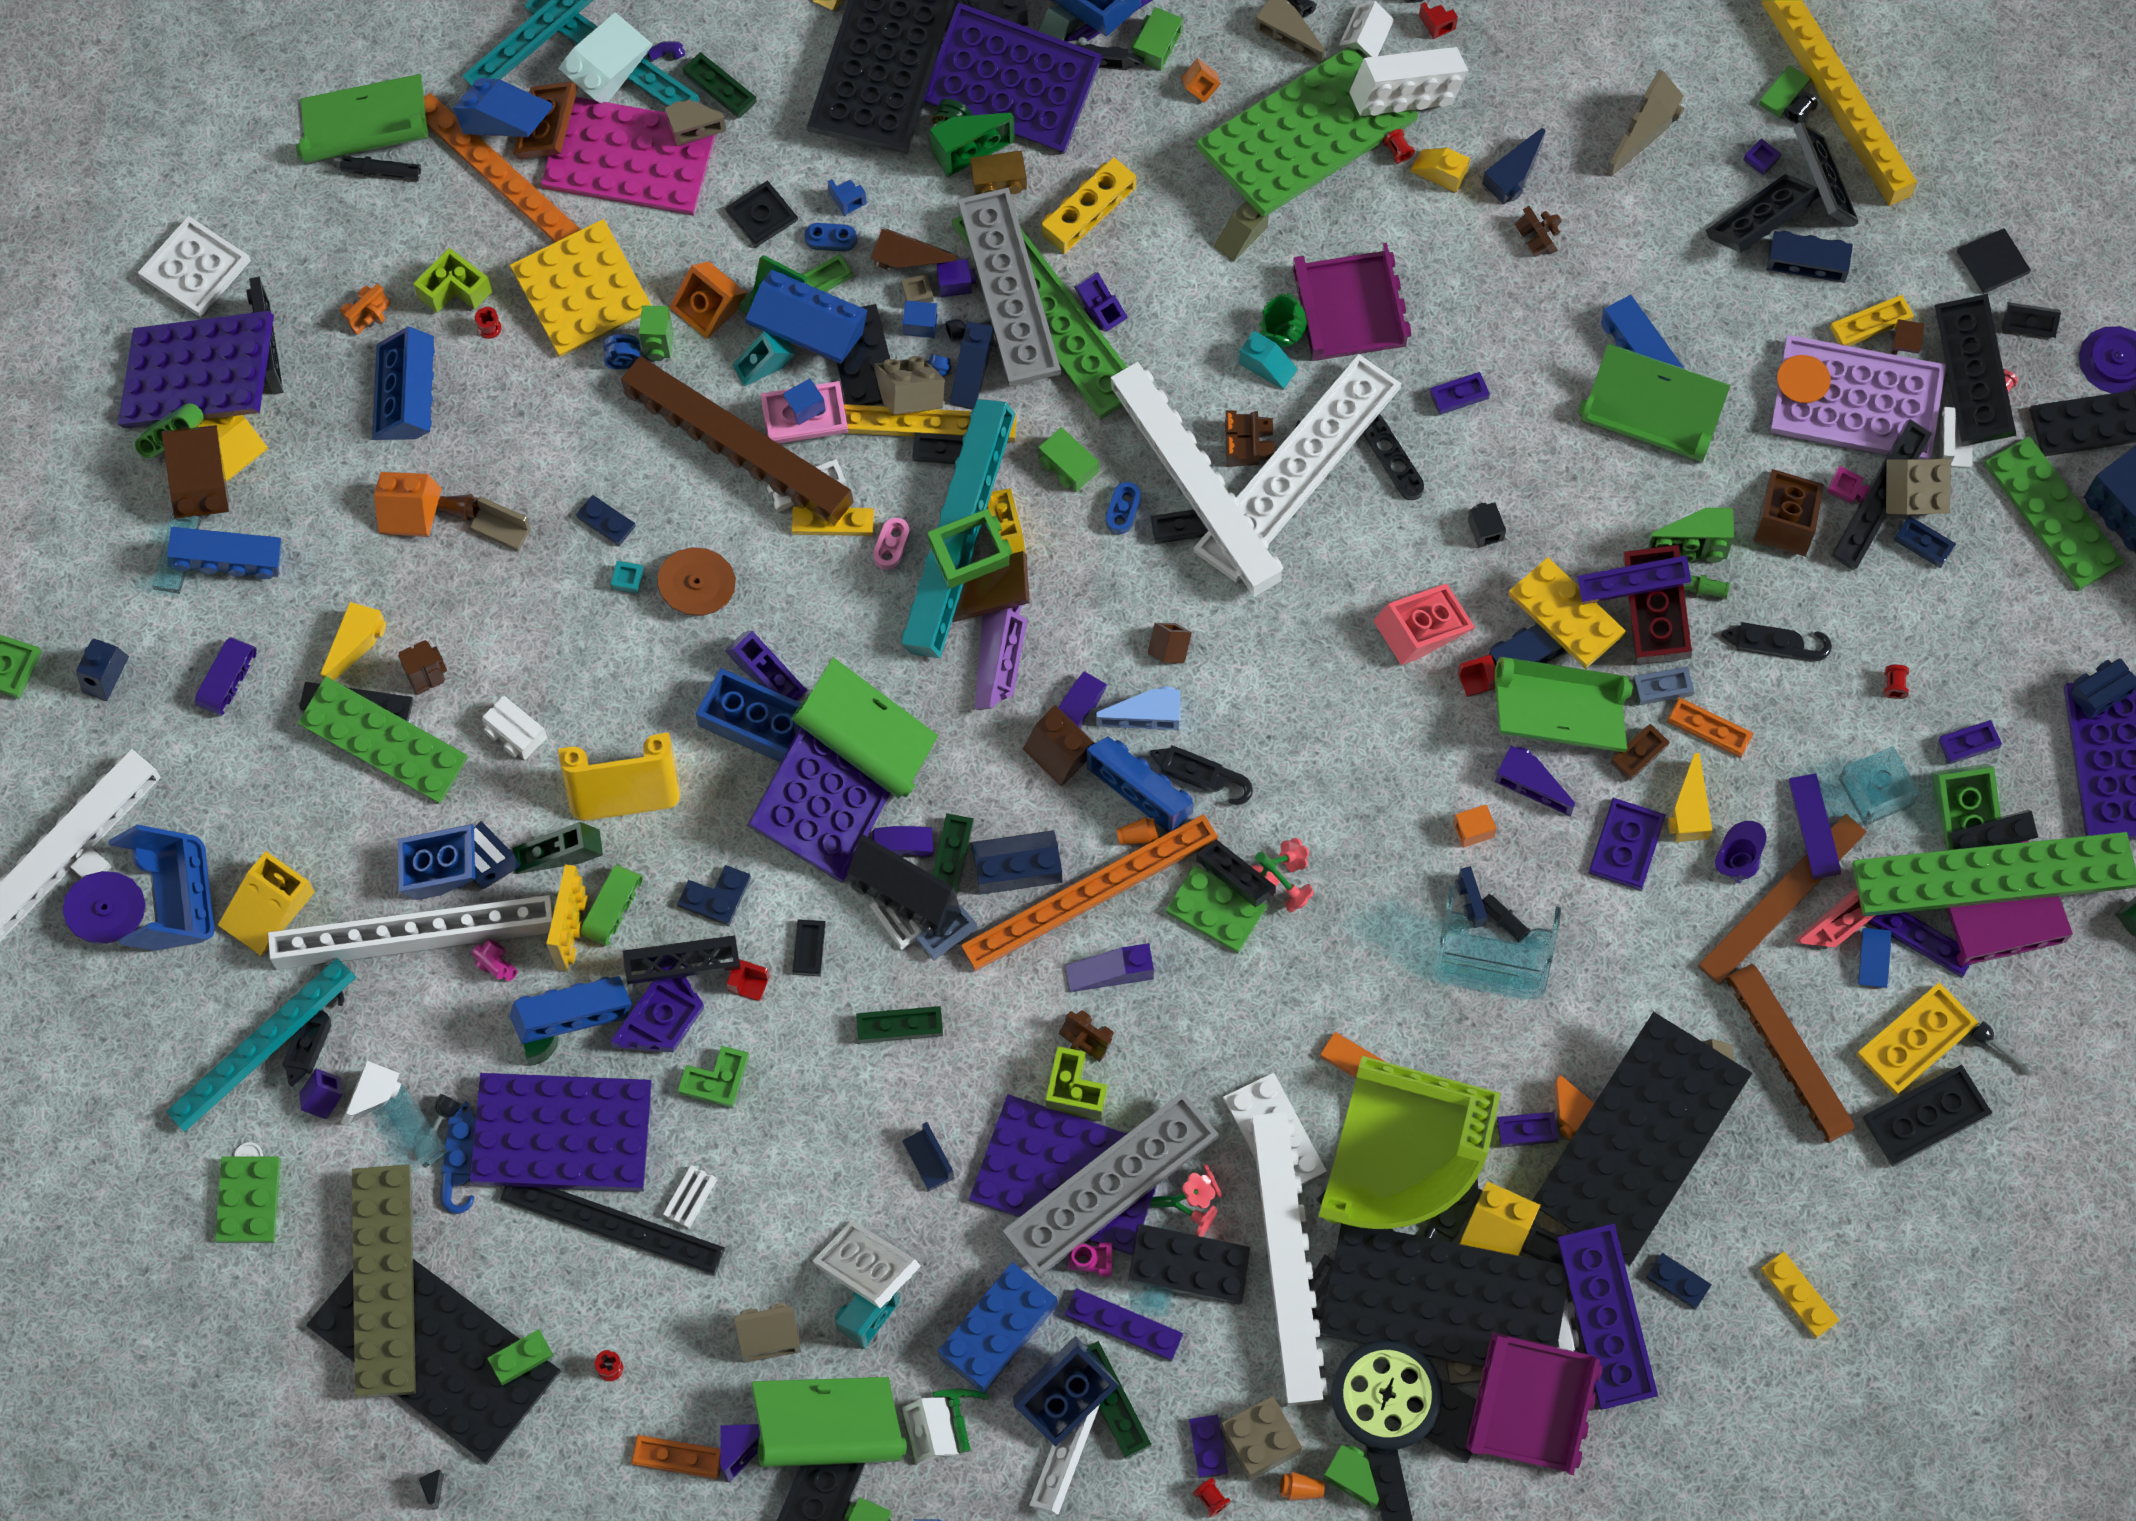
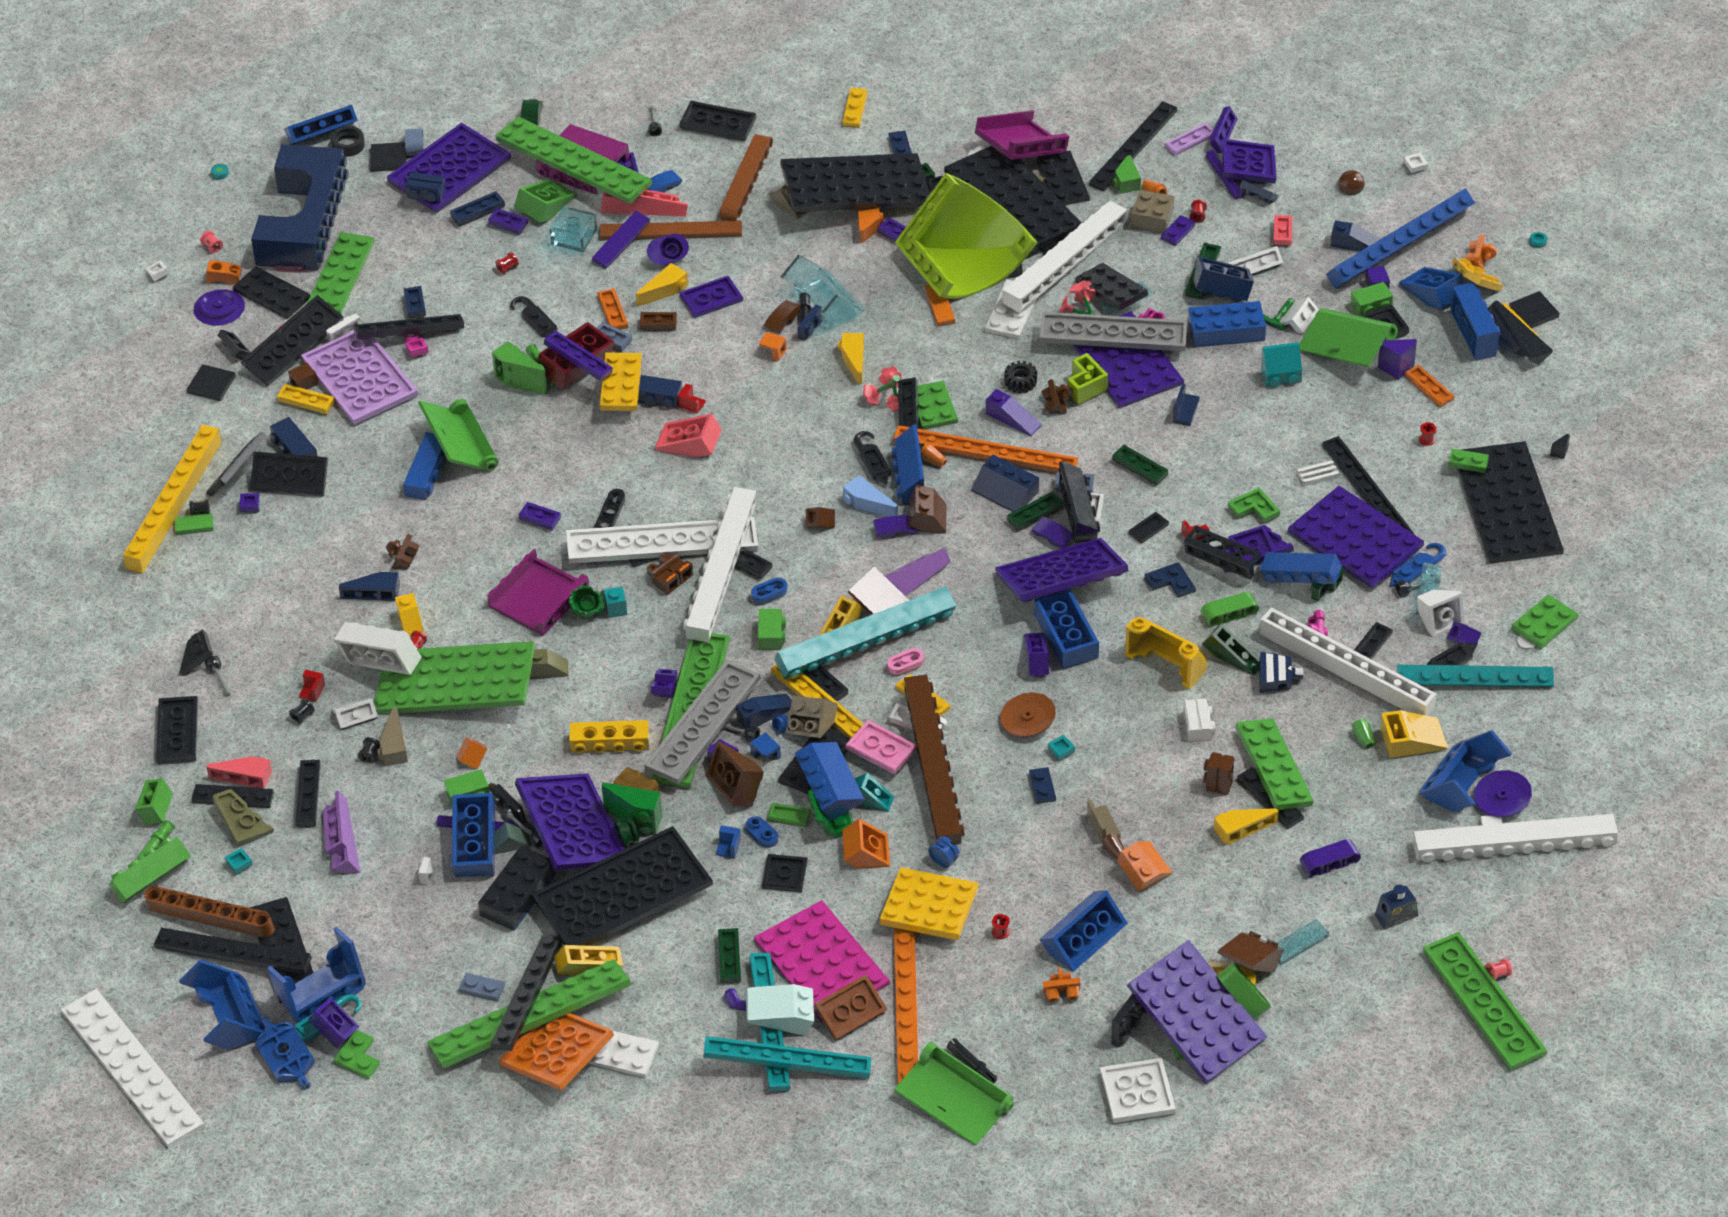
camera: 135 degrees left, 20 degrees down
(224, 552) = (1272, 912): blue brick -> none
(324, 865) = (1363, 732): none -> bright green cone
(383, 1281) = (1507, 534): olive plate -> none
(419, 995) = (1373, 640): none -> black tile
(436, 862) = (1302, 674): blue slope -> none
(450, 277) = (1000, 961): lime brick -> none
(499, 109) = (872, 1020): blue slope -> none
(566, 917) = (1259, 598): yellow plate -> none
(656, 332) = (915, 840): bright green brick -> none
(693, 121) = (772, 933): dark tan slope -> none
(767, 1332) = (1337, 392): dark tan slope -> none
(805, 401) = (878, 734): blue panel -> none
(865, 728) = (1020, 571): bright green door -> none
(866, 1263) = (1264, 373): white plate -> none
(957, 577) = (875, 611): bright green window -> none
(1124, 1324) = (1165, 293): dark purple plate -> none
(1164, 1018) = (1020, 384): none -> black tyre
(1373, 1432) = (1080, 185): wedge -> none
(1375, 895) = (853, 353): none -> yellow slope
(1486, 524) = (604, 452): black brick -> none
(1514, 880) = (779, 317): none -> reddish brown slope
(1529, 777) = (723, 347): dark purple slope -> none
(1561, 704) = (674, 352): bright green door -> none
(1607, 1315) = (947, 145): dark purple plate -> none
(1657, 112) = (280, 556): dark tan wedge -> none
(1789, 513) = (458, 354): reddish brown slope -> none
(1803, 378) = (374, 395): orange piece -> none
(1917, 1039) = (684, 145): yellow plate -> none
(1918, 486) = (391, 308): dark tan brick -> none
(1998, 831) = (550, 180): black plate -> none
(2025, 729) = (477, 208): none -> dark blue plate

